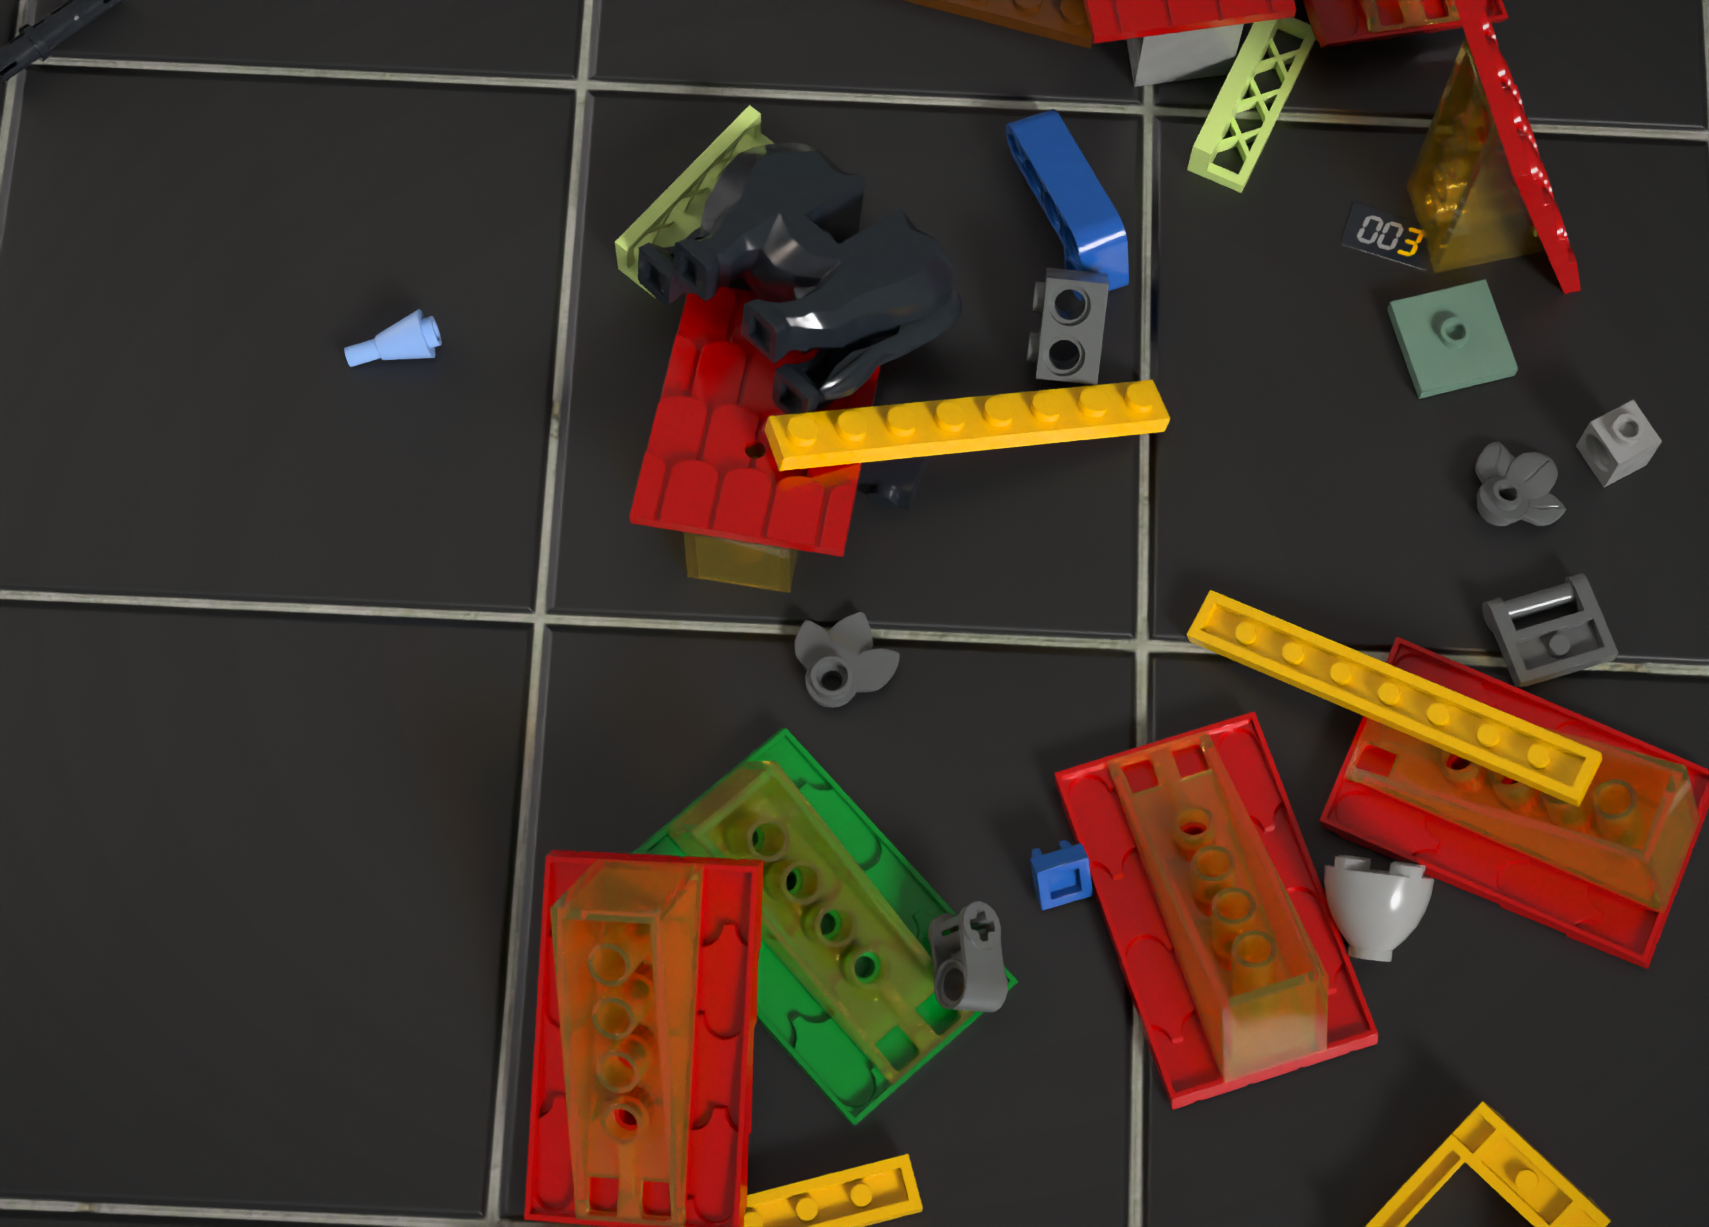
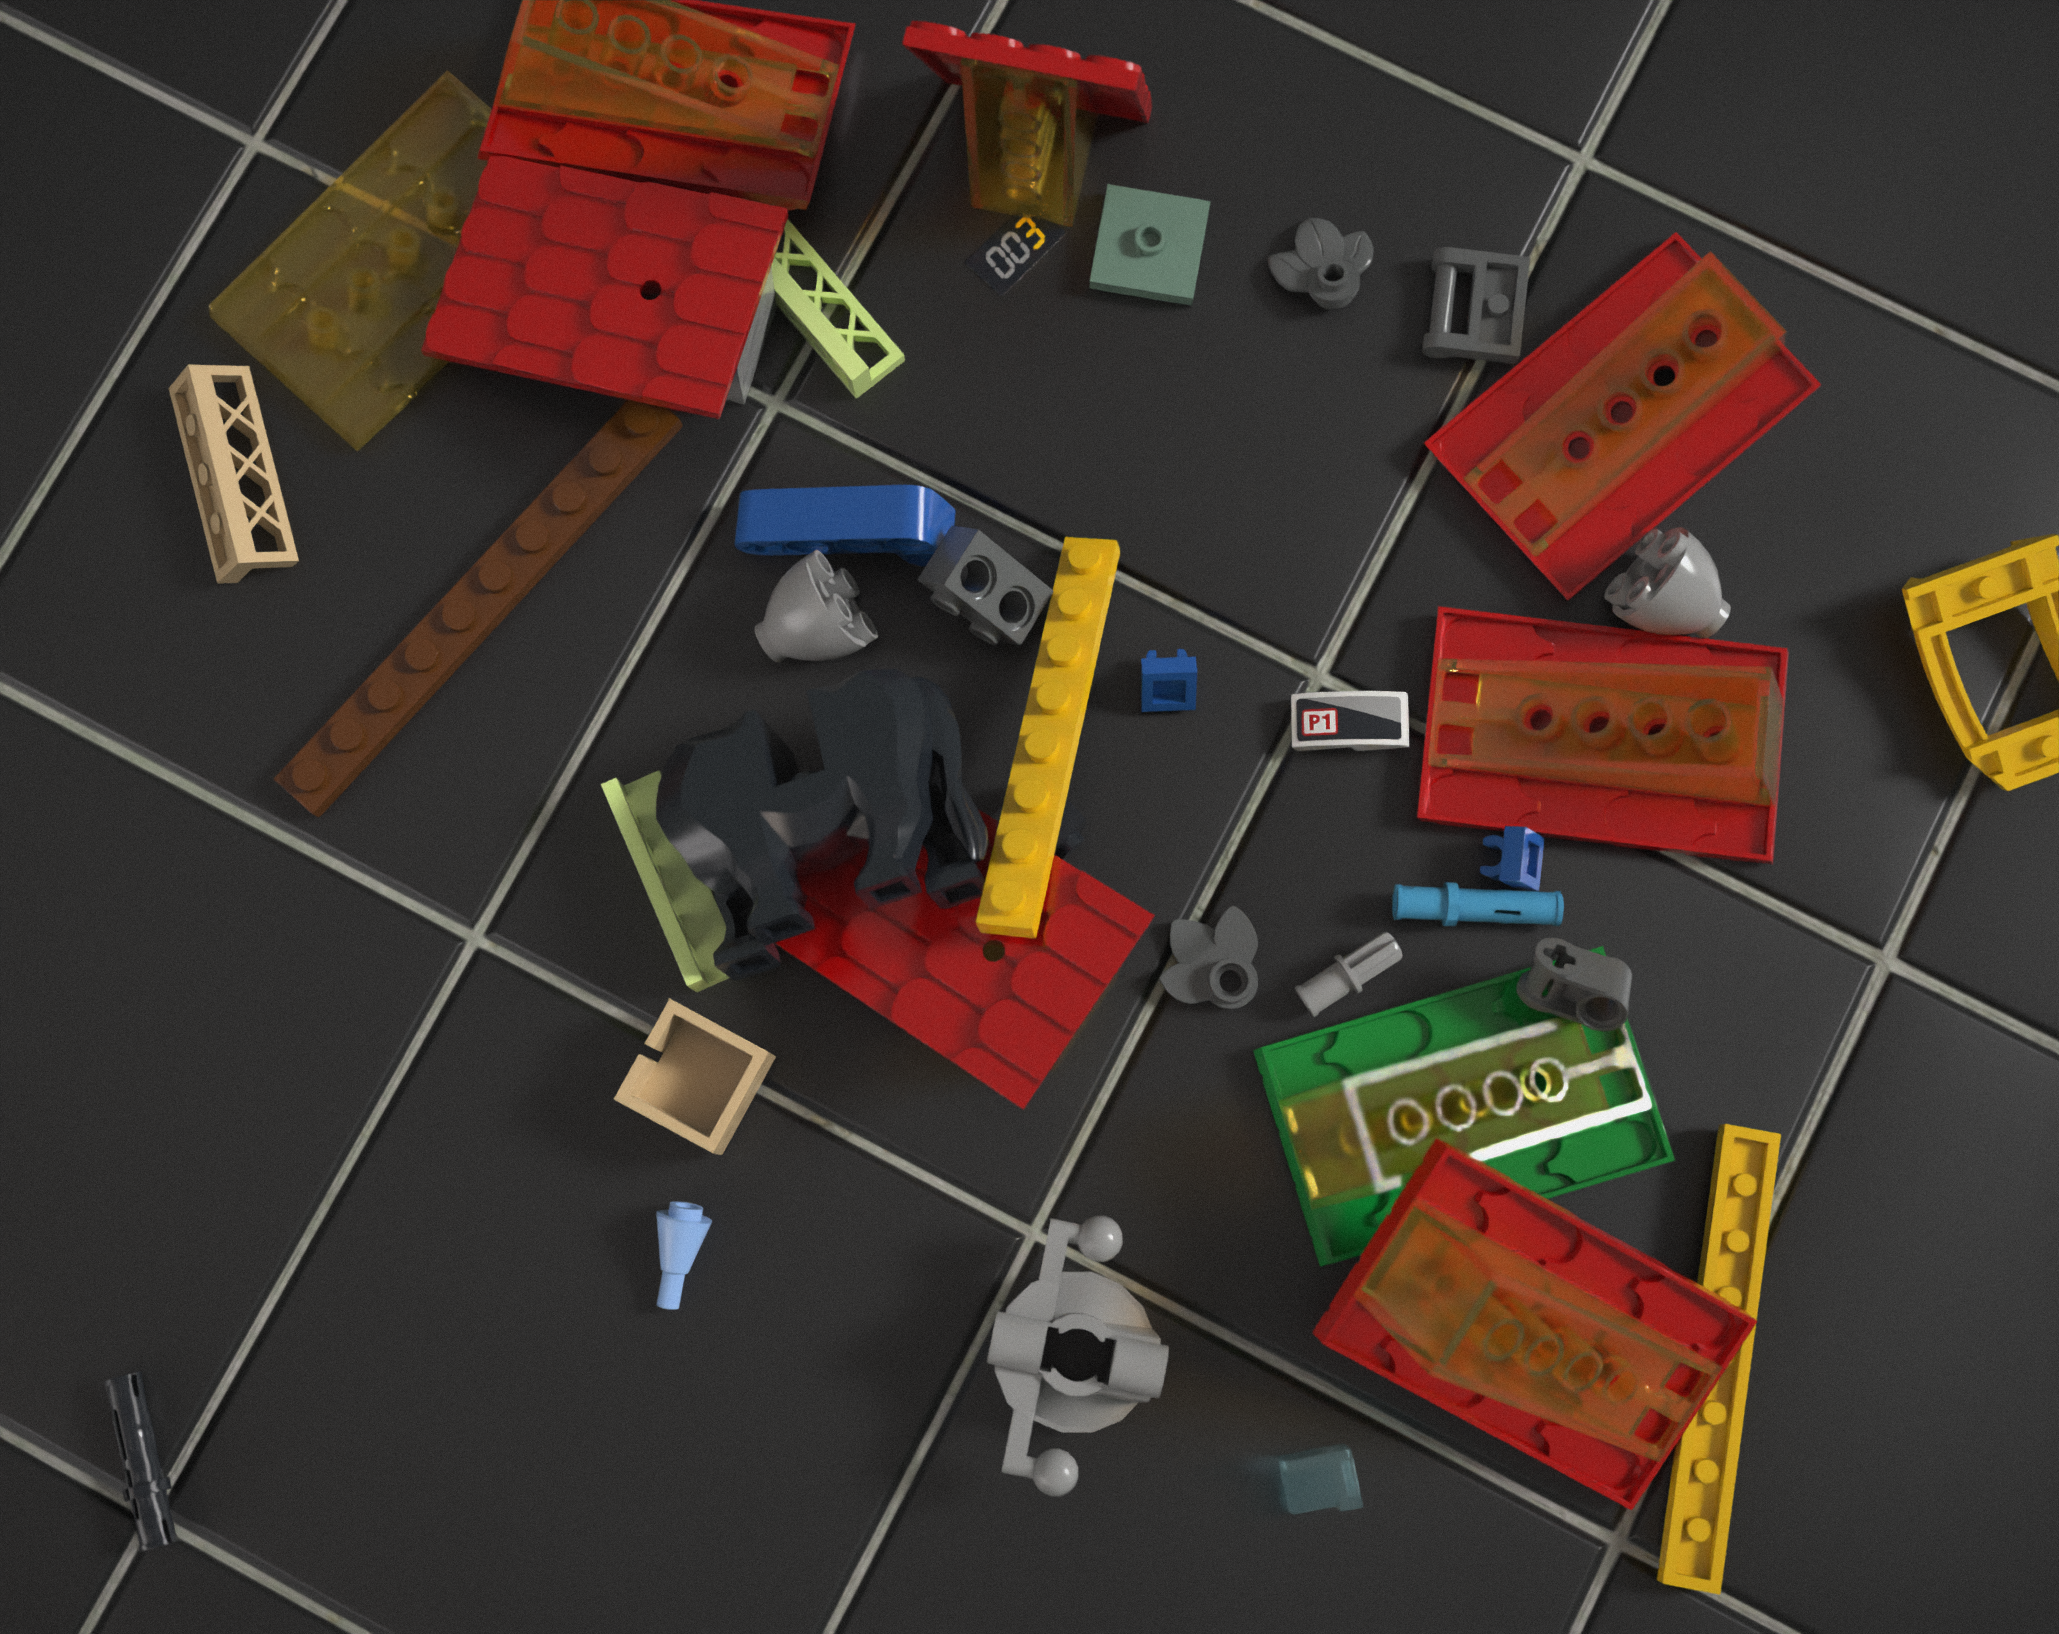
camera: 60 degrees left, 10 degrees up
(434, 937) = (1320, 1479): none -> clear light blue panel
(441, 630) = (1067, 1303): none -> light grey piece
(542, 298) = (700, 1080): none -> tan piece
(887, 774) = (1349, 973): none -> light grey axle
(981, 209) = (814, 614): none -> light grey piece
(1005, 867) = (1477, 905): none -> dark azure pin
(1067, 515) = (1168, 682): none -> blue tile
(1113, 682) = (1350, 720): none -> slope
(1396, 698) = (1503, 474): yellow plate -> none
(1618, 443) = (1330, 150): light grey brick -> none

